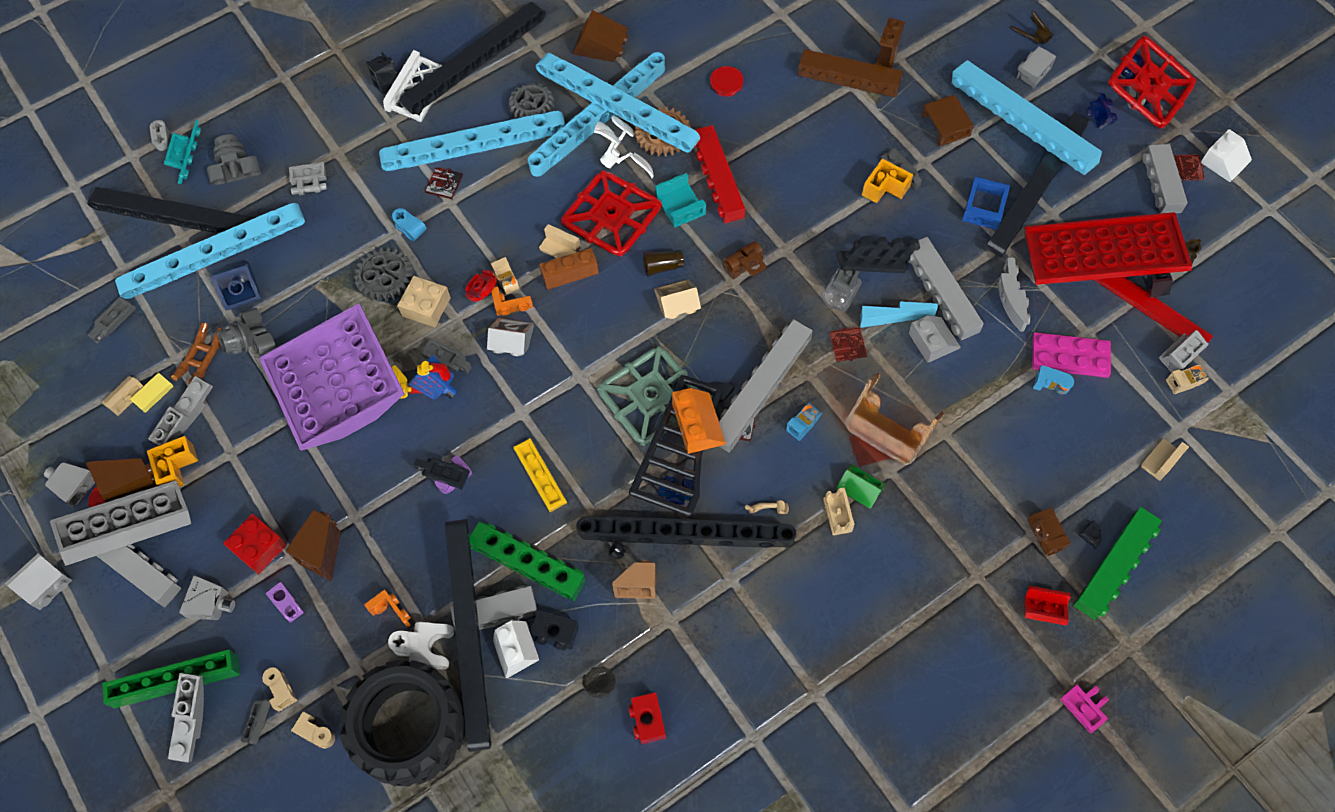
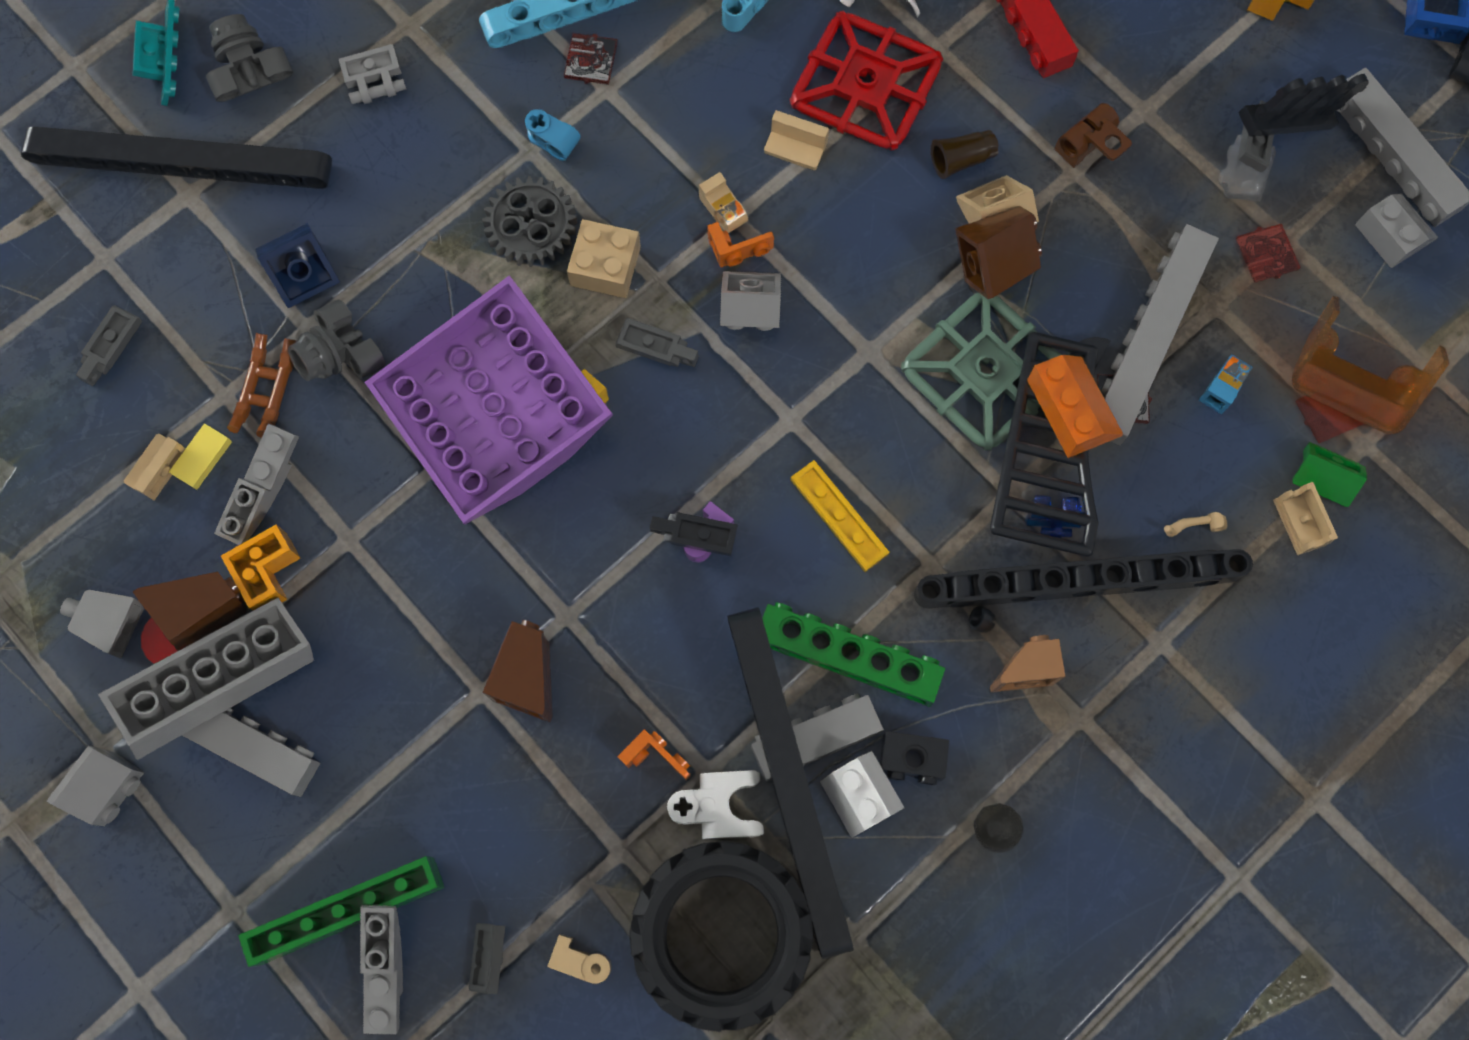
camera: 10 degrees left, 10 degrees up
(156, 136) = (108, 28): light grey beam -> none
(198, 256) = (223, 224): medium azure beam -> none
(205, 601) = (366, 780): light grey torso -> none
(255, 543) = (423, 680): red brick -> none
(280, 689) = (512, 900): tan leg -> none
(285, 602) = (491, 767): medium lavender leg -> none
(431, 379) = (646, 385): torso -> none
(480, 286) = (689, 223): red tile -> none
(569, 268) = (821, 179): dark orange brick -> none
(647, 705) = (1096, 885): red brick -> none
(670, 322) = (999, 250): none -> reddish brown slope
(679, 200) = (969, 50): teal panel -> none
(905, 312) = (1349, 190): medium azure slope -> none

